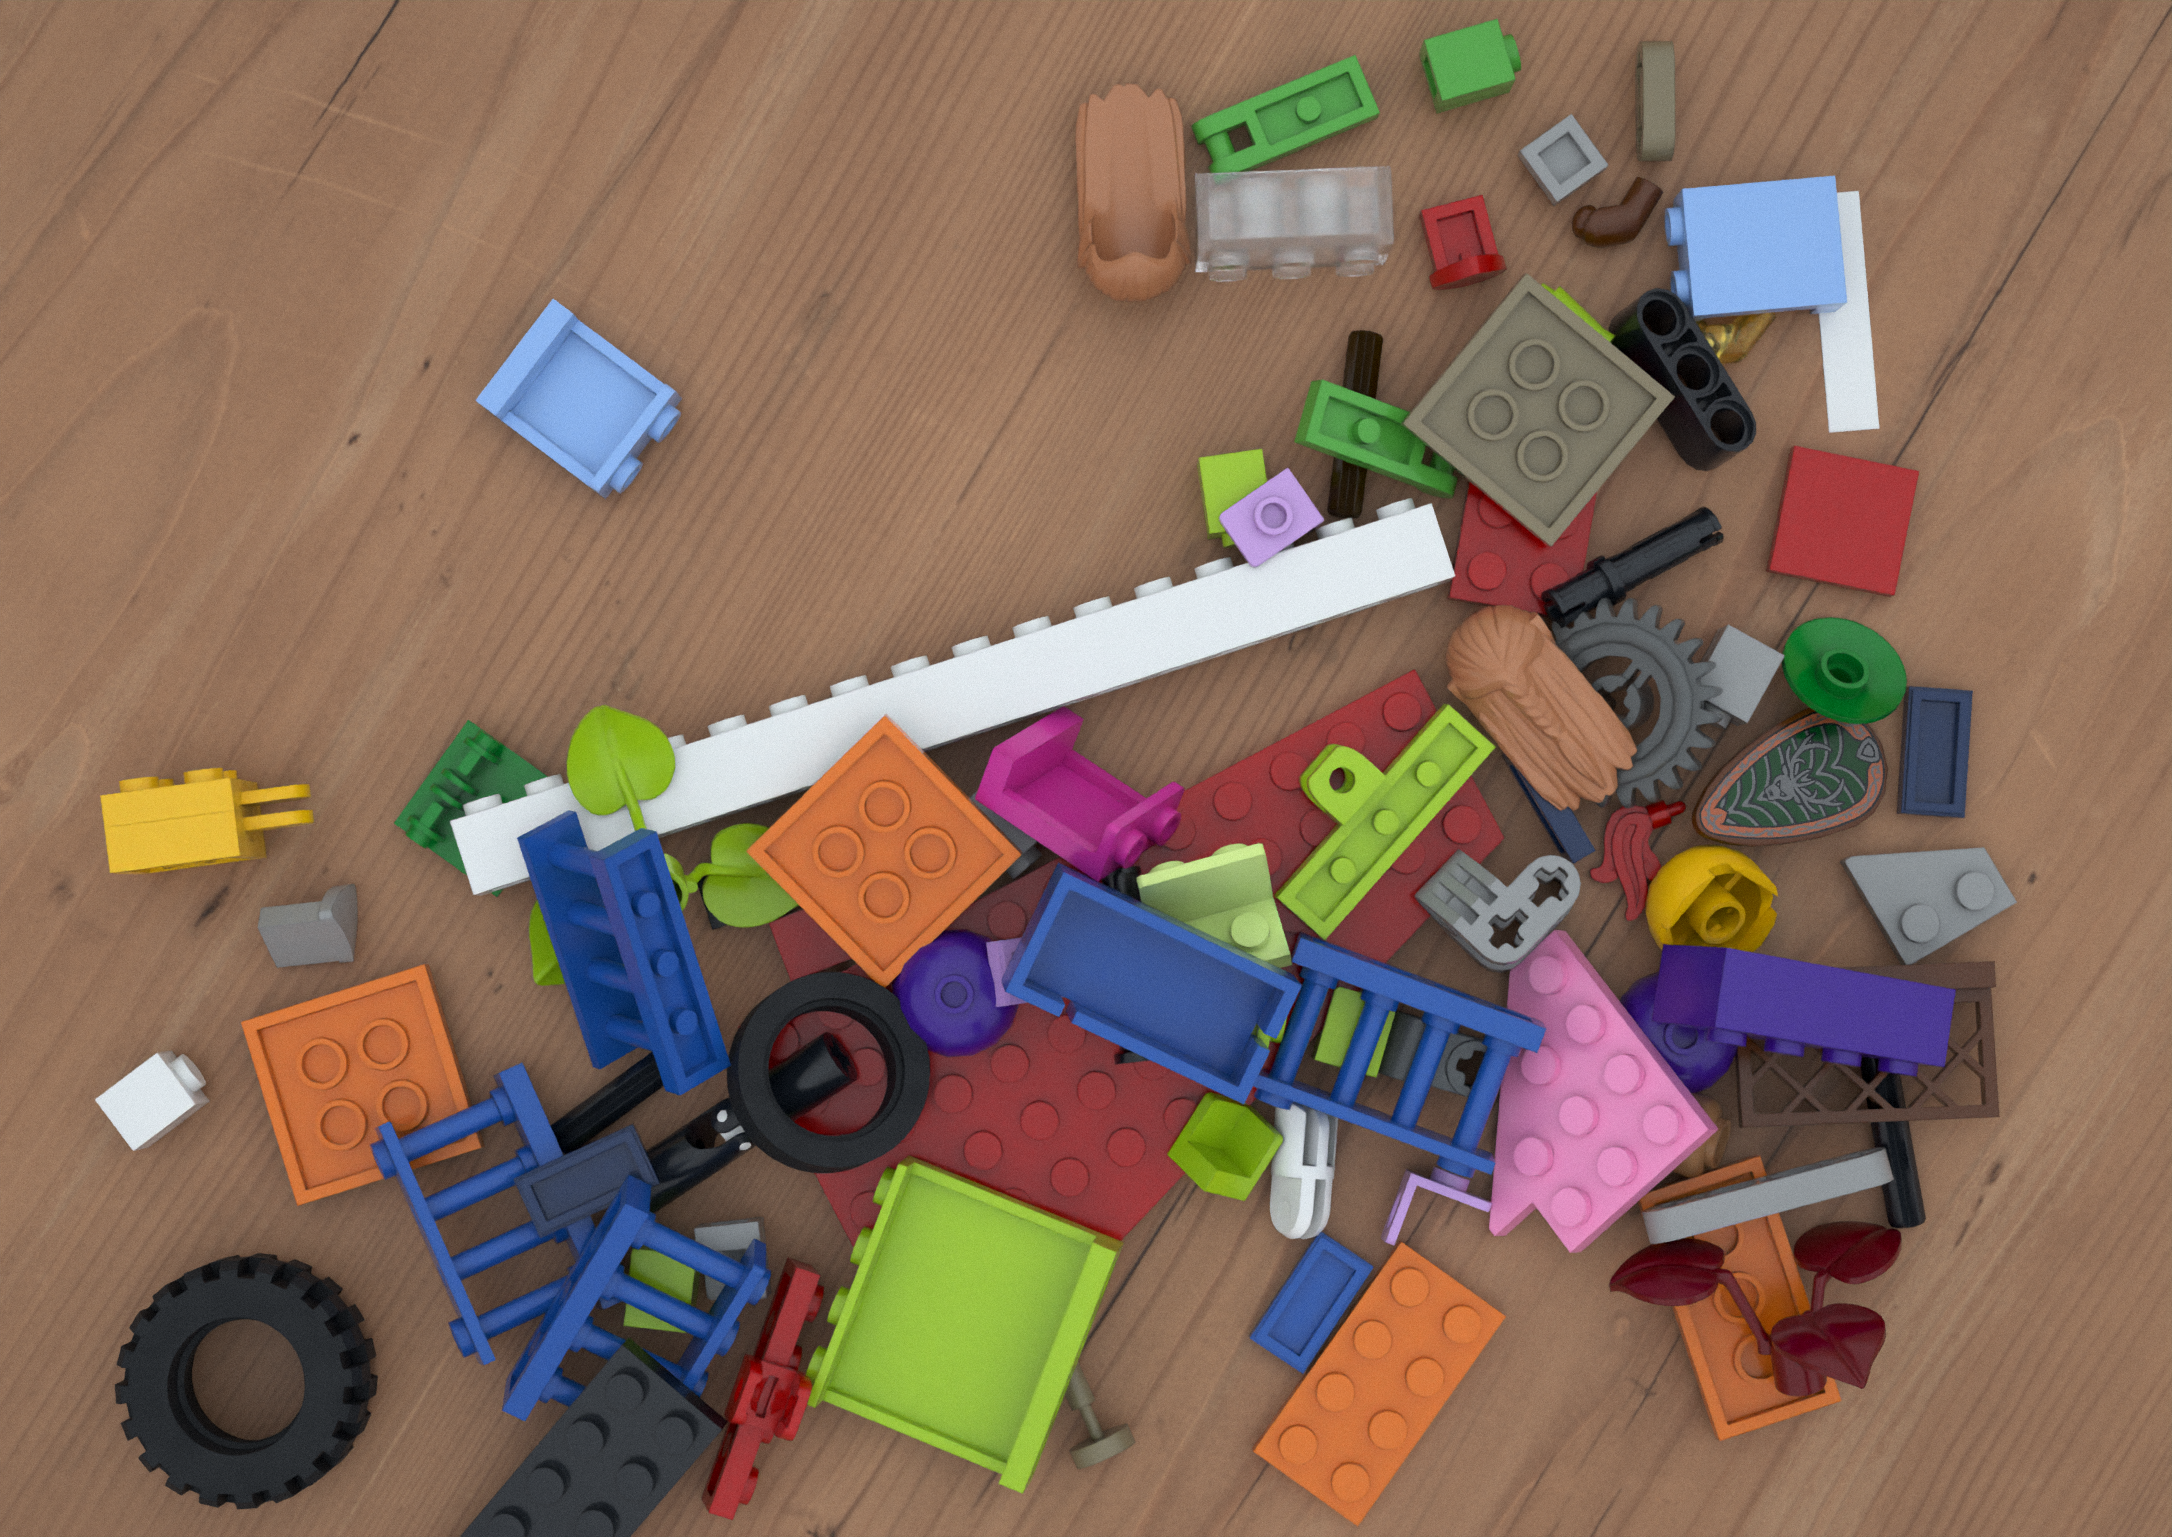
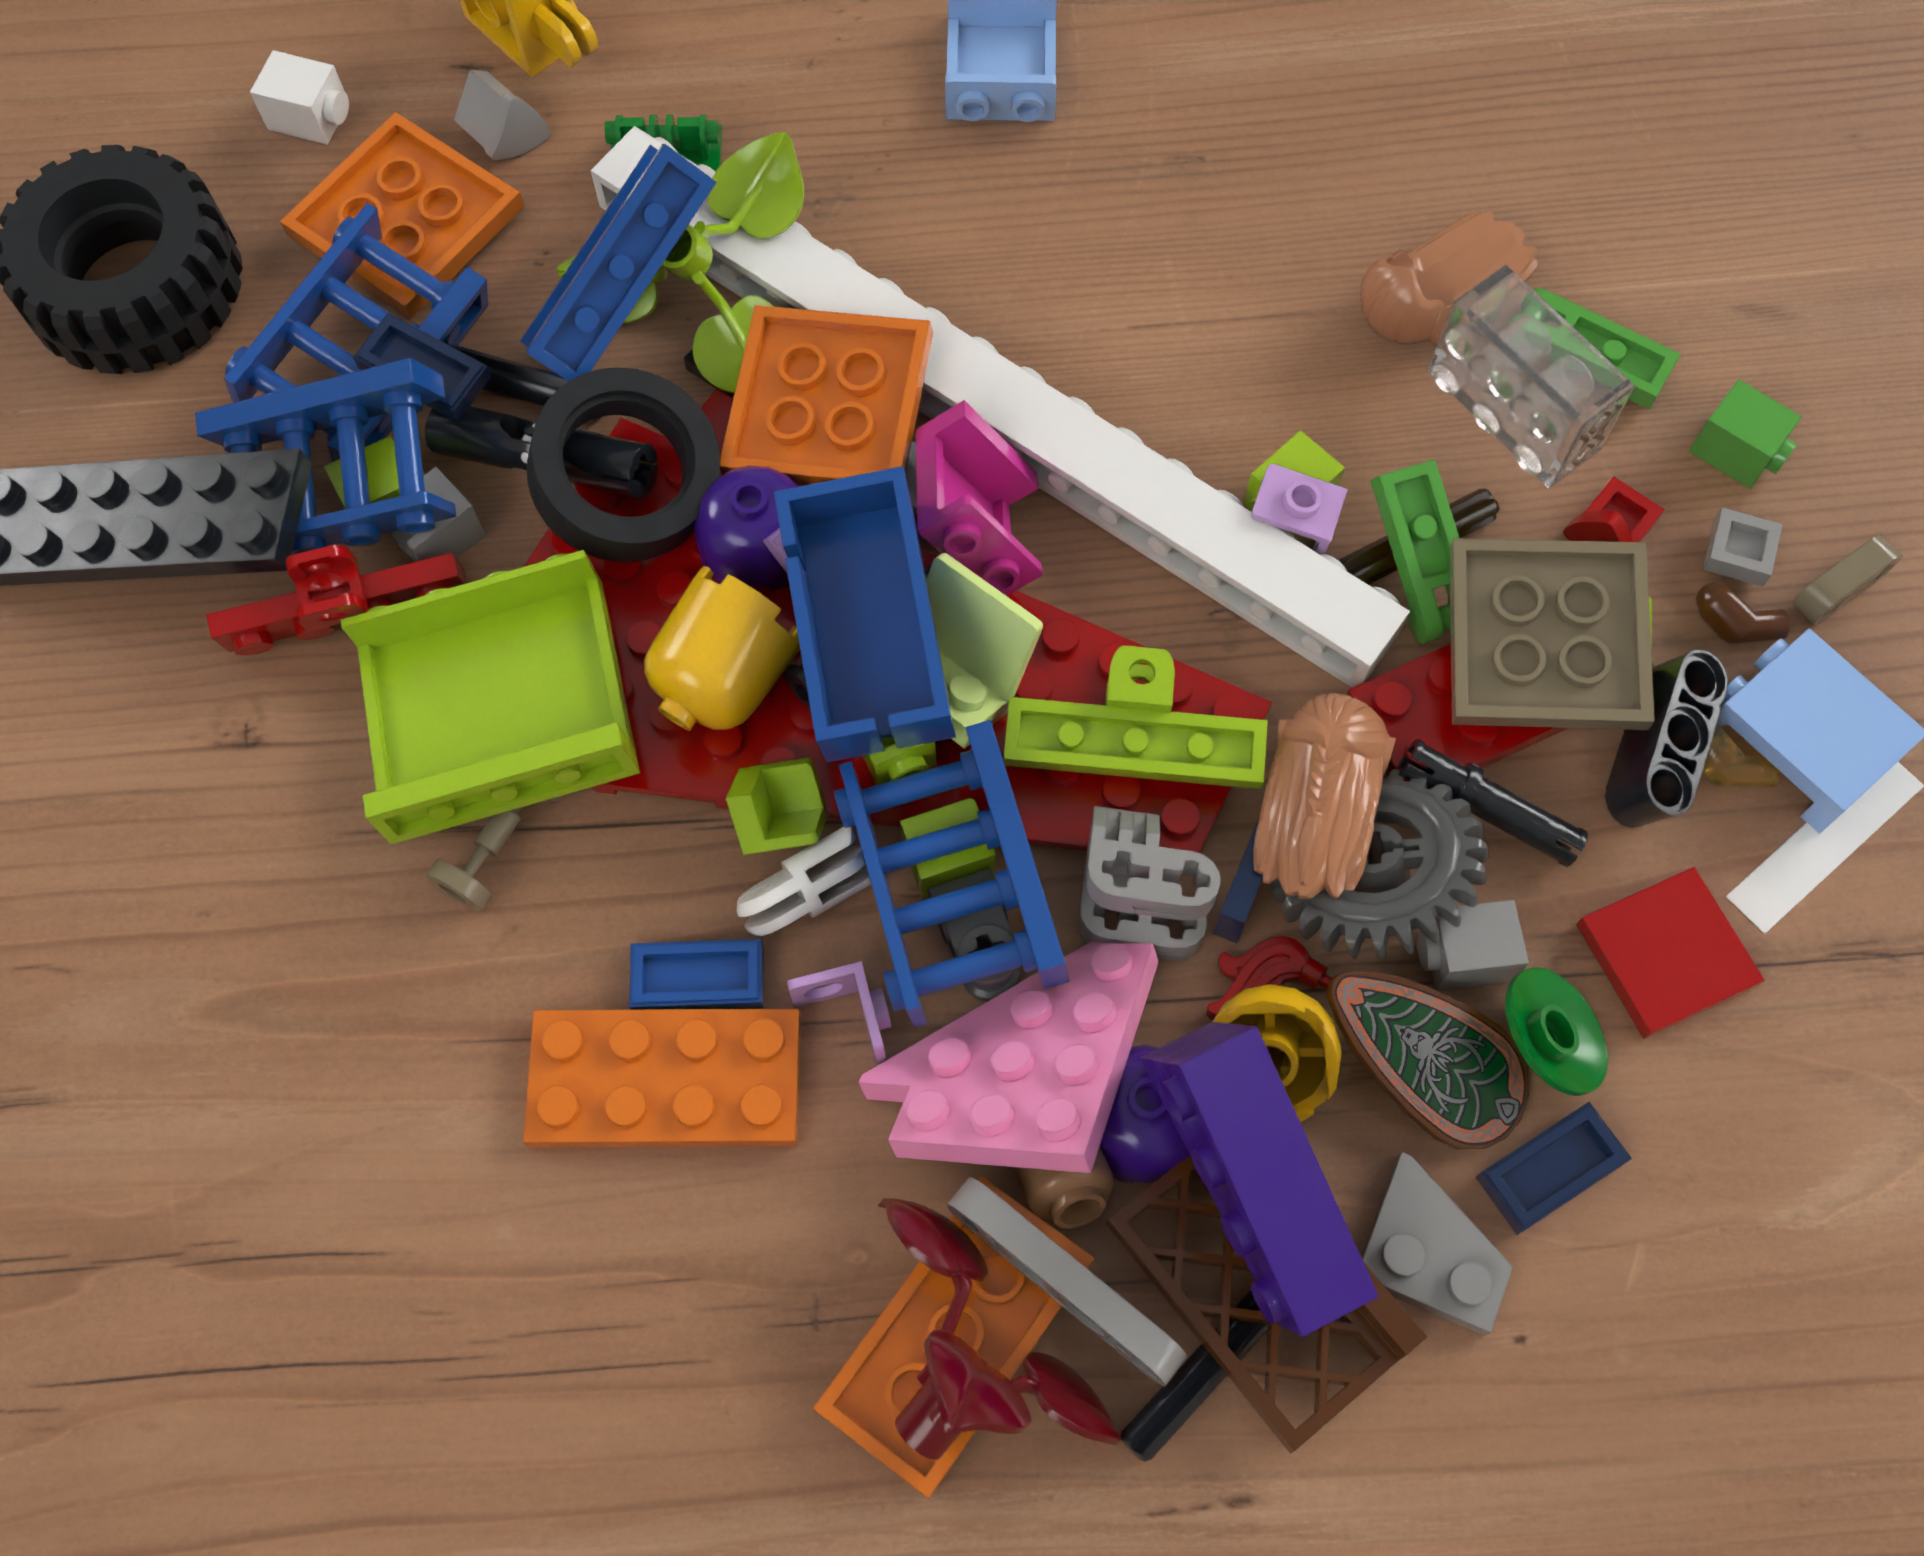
camera: 55 degrees right, 20 degrees down
(1072, 1113) = (718, 653): none -> yellow cylinder

